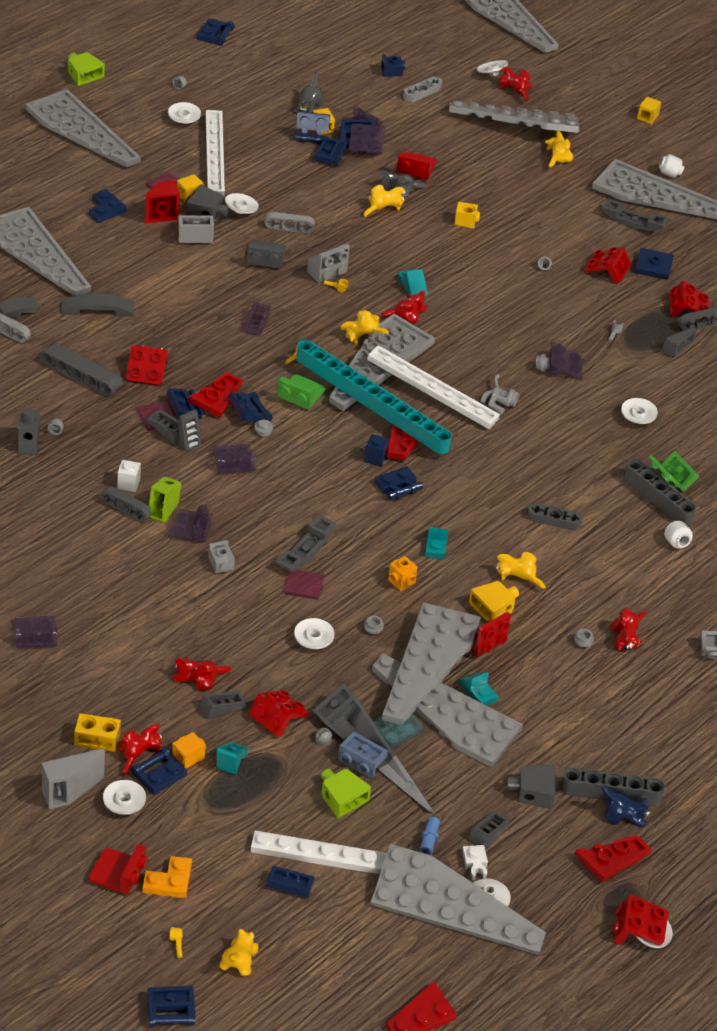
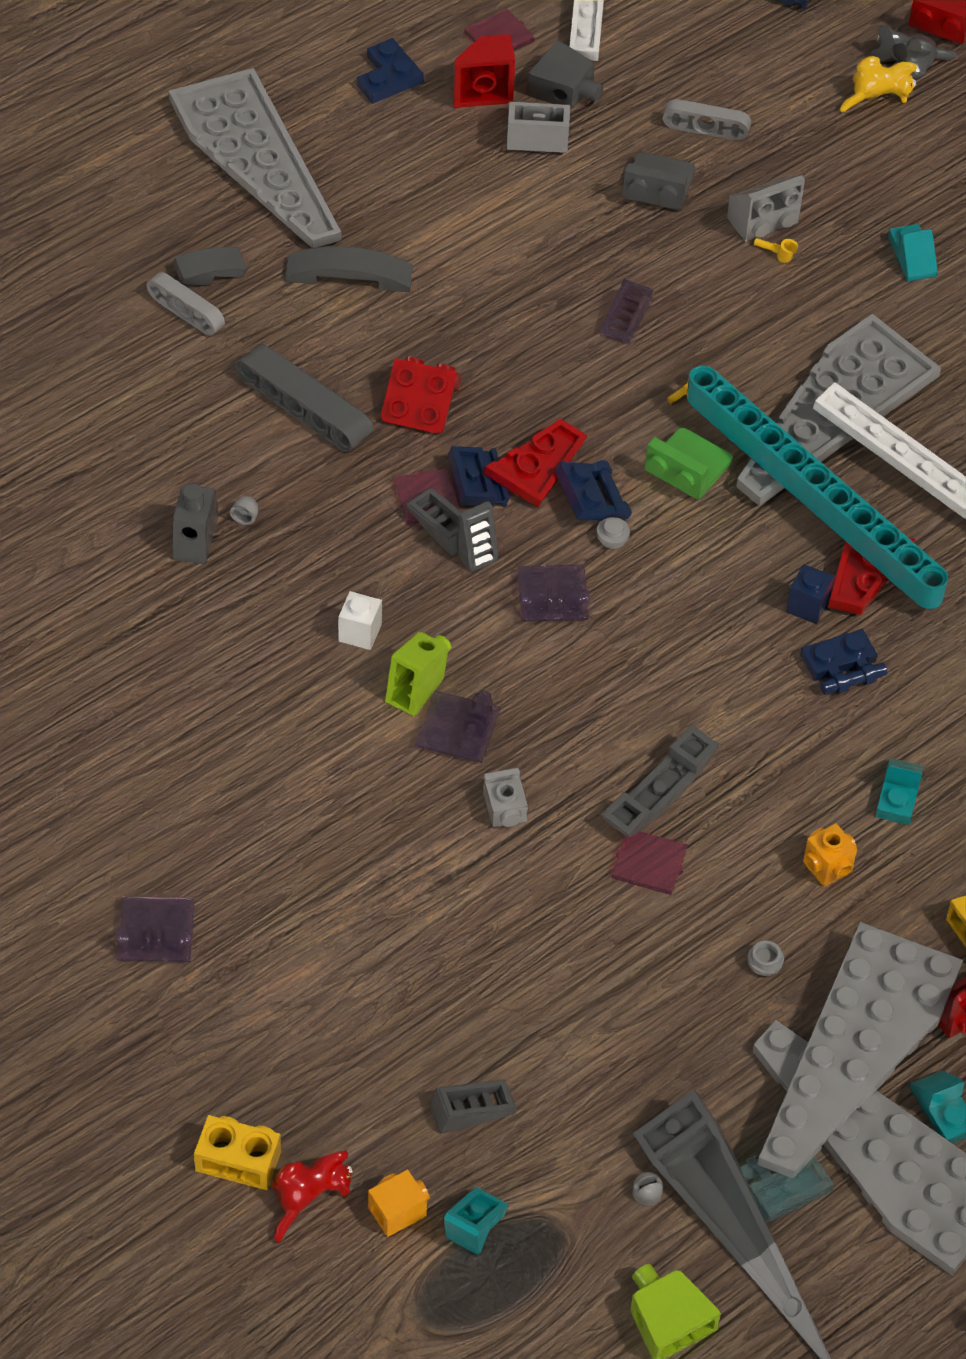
camera: 10 degrees right, 10 degrees up
(71, 777) = (177, 1249): light grey slope -> none
(124, 797) = (269, 1279): white dish -> none
(136, 509) = (348, 676): dark grey beam -> none
(163, 775) = (346, 1249): dark blue plate -> none
(188, 186) = (535, 41): yellow brick -> none
(201, 672) = (439, 1038): red animal -> none
(241, 203) = (625, 78): white dish -> none
(275, 710) = (569, 1127): red bracket -> none
(314, 633) = (654, 958): white dish -> none
(361, 754) = (713, 1236): sand blue bracket -> none
(364, 325) = (817, 337): yellow animal -> none
(409, 308) = (899, 305): red animal -> none

